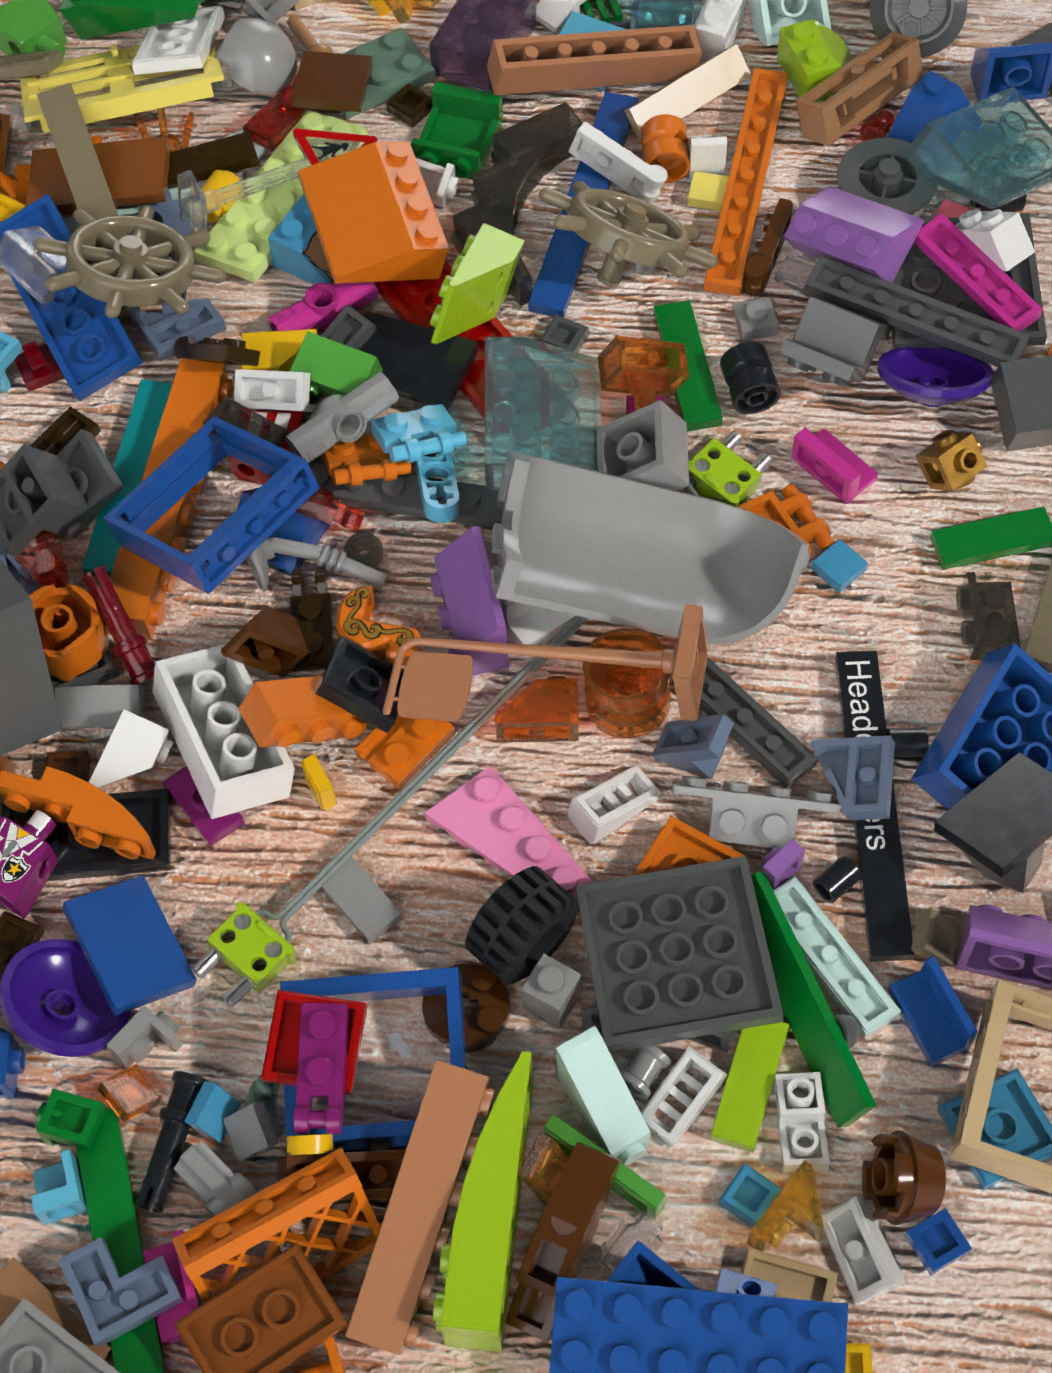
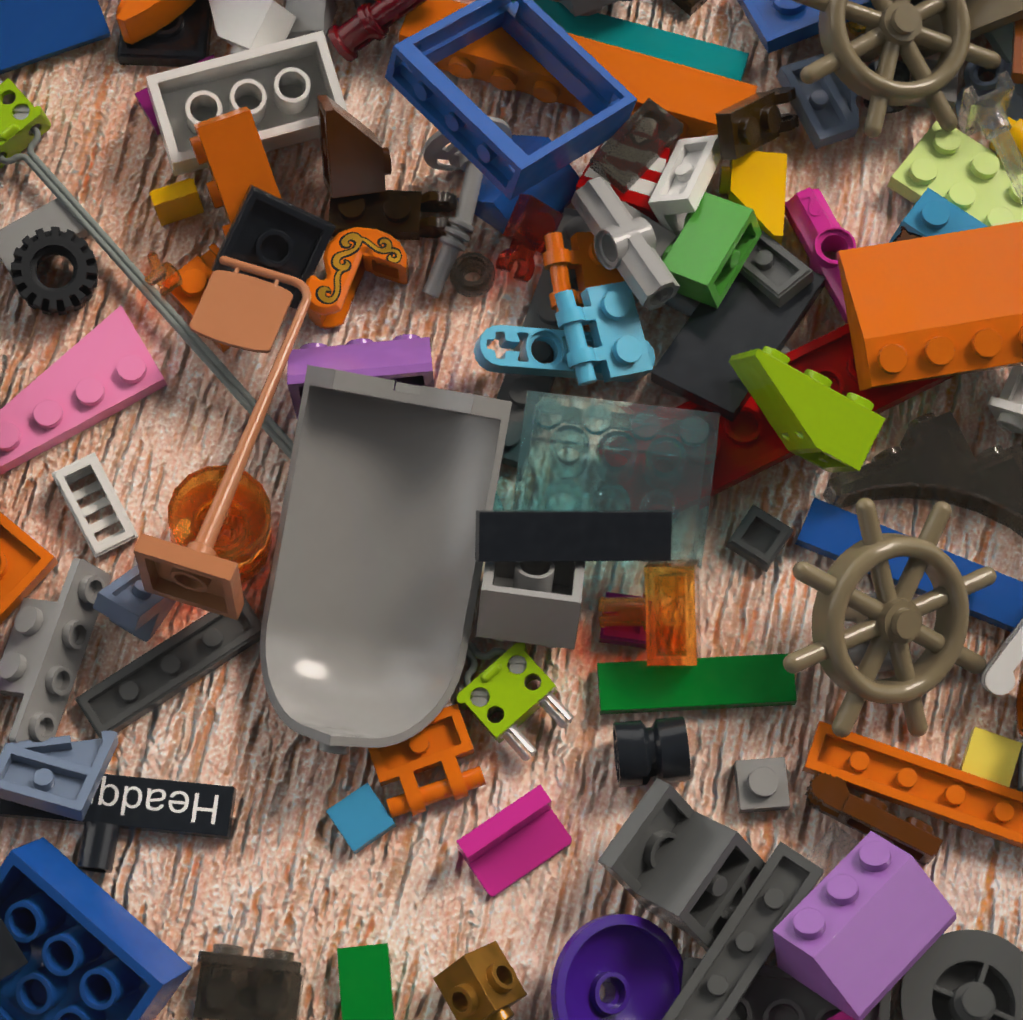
camera: 95 degrees right, 10 degrees up
(400, 774) = (163, 275): none -> clear orange hand
(405, 847) = (54, 243): none -> black tyre
(541, 713) = (211, 432): clear orange slope -> none
(601, 422) = (573, 535): none -> black tile

